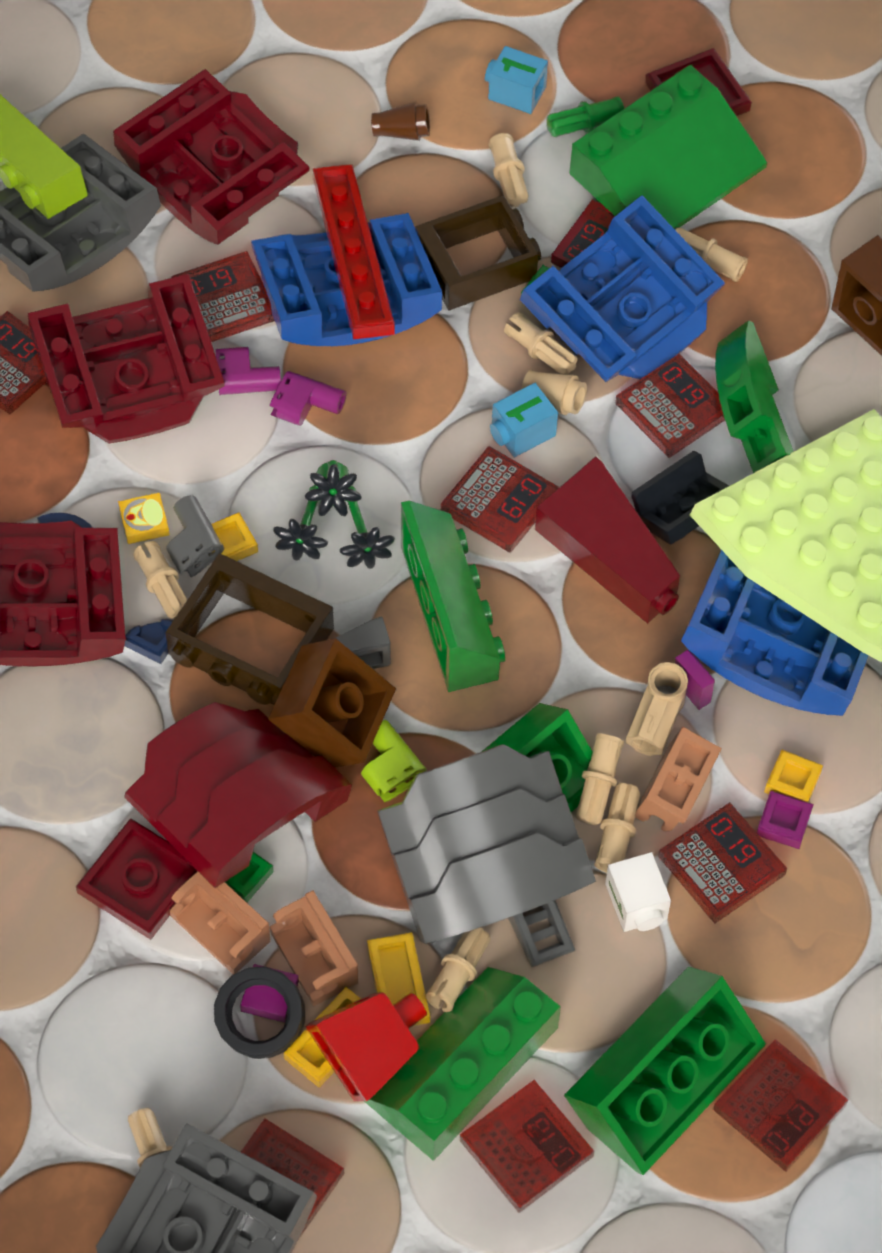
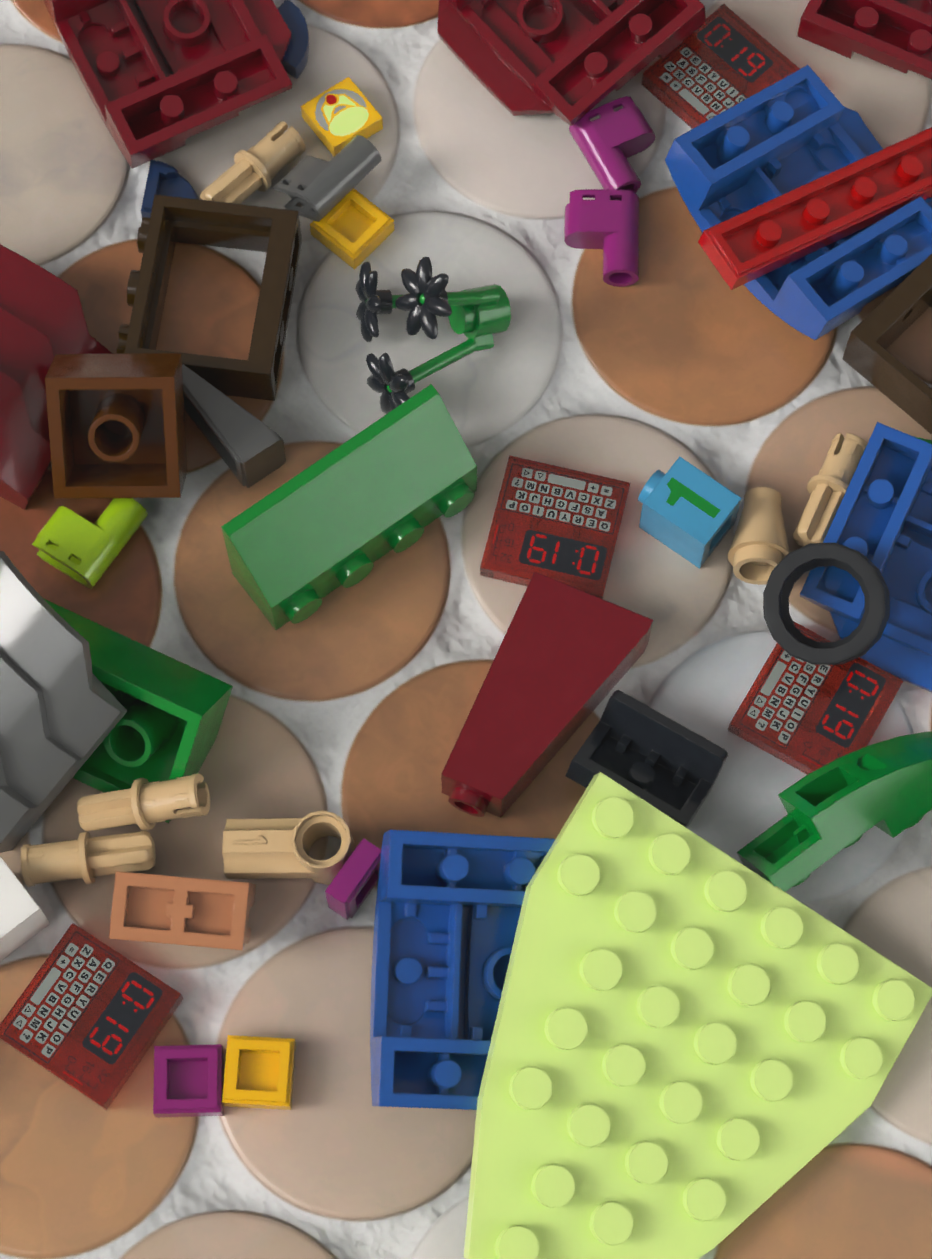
camera: 70 degrees right, 10 degrees up
(646, 341) = (777, 604): none -> black tyre

